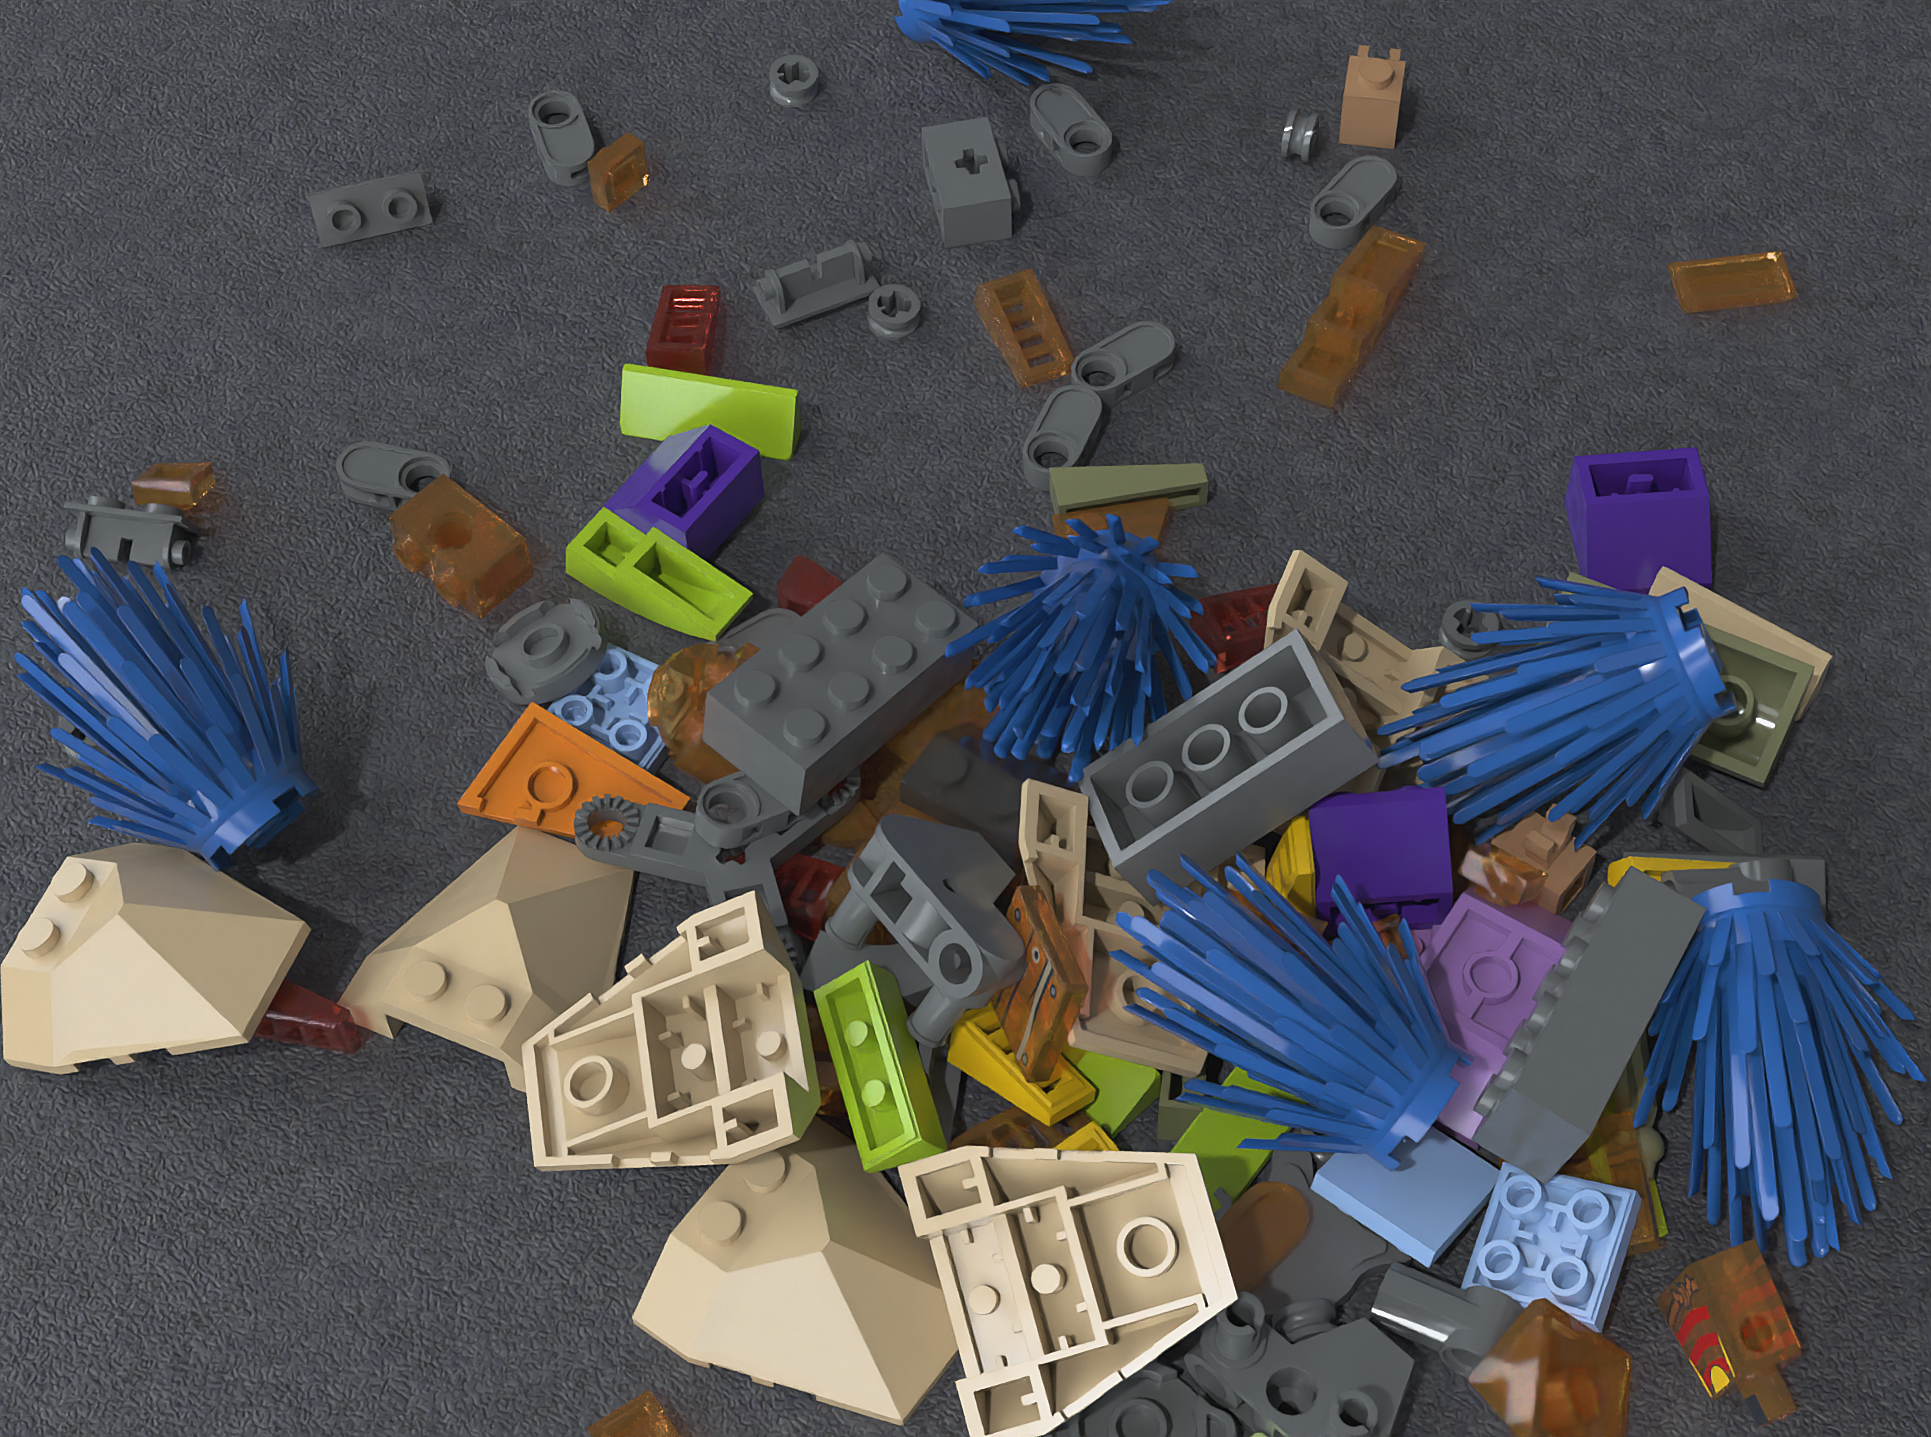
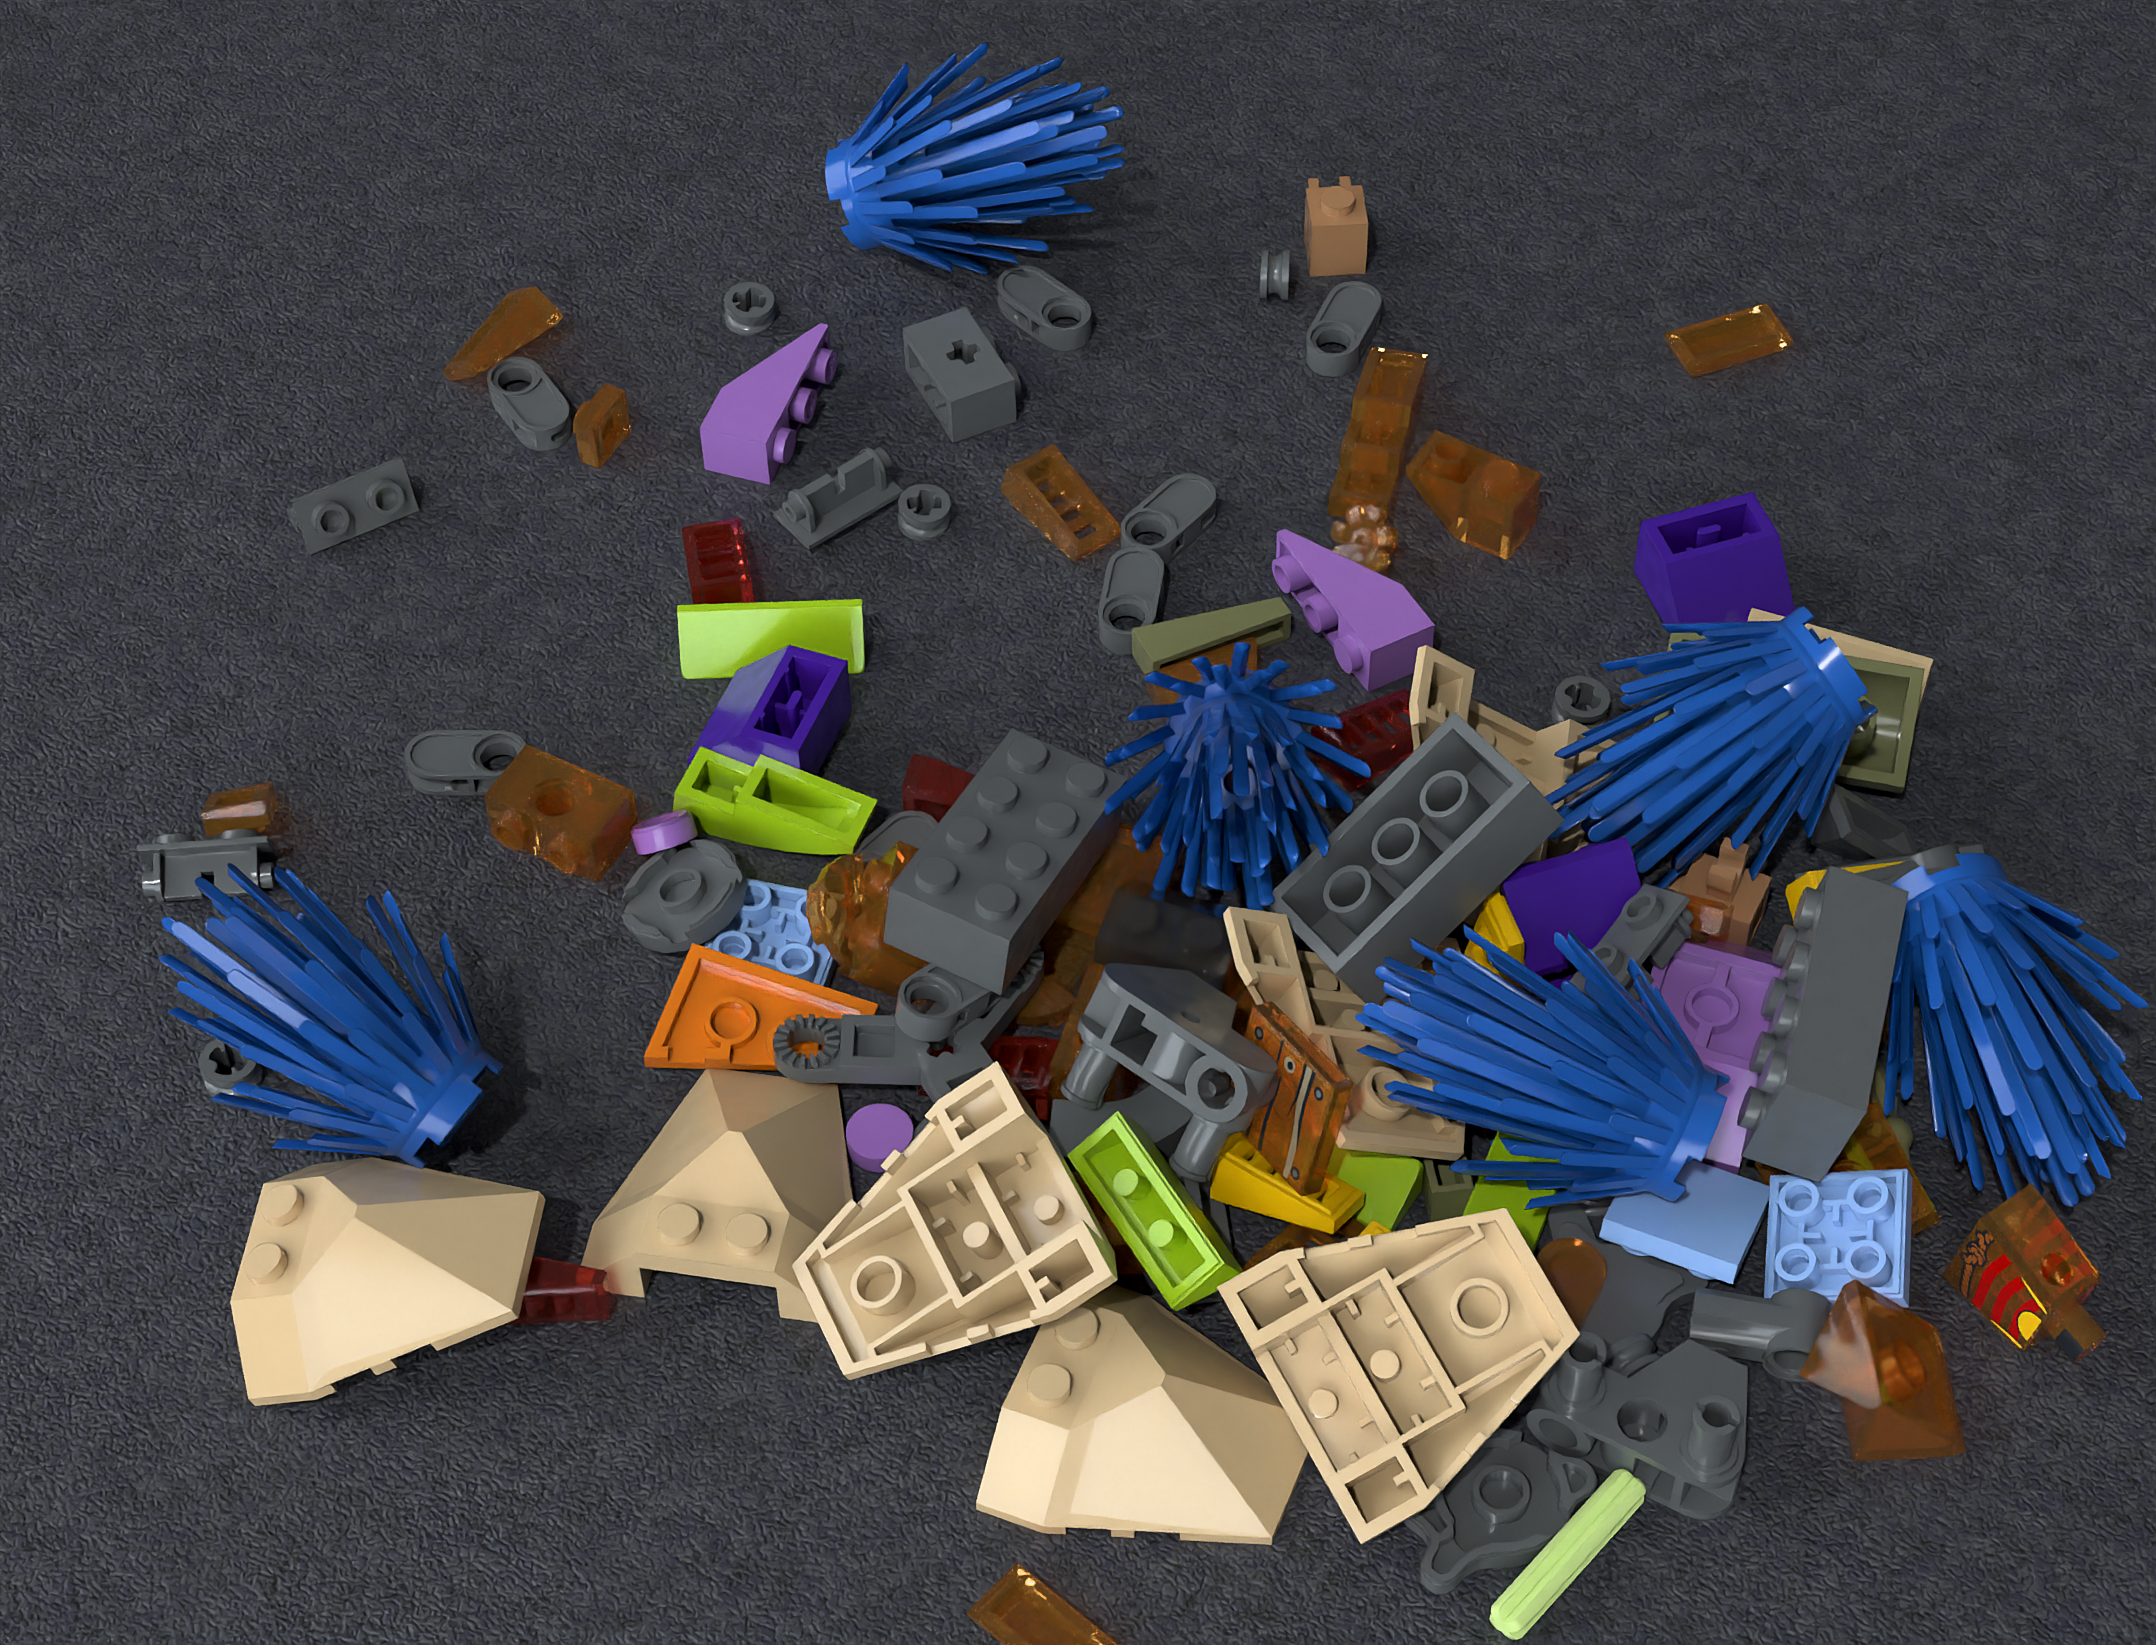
camera: 15 degrees left, 5 degrees down
(548, 583) = (663, 831): none -> medium lavender tile
(566, 59) = (512, 324): none -> clear orange slope
(652, 924) = (875, 1133): none -> medium lavender tile
(771, 184) = (761, 411): none -> medium lavender slope
(1276, 491) = (1359, 611): none -> medium lavender slope
(1302, 422) = (1365, 537): none -> clear orange plant
(1427, 394) = (1476, 493): none -> clear orange slope
(1445, 882) = (1650, 928): none -> dark grey hinge

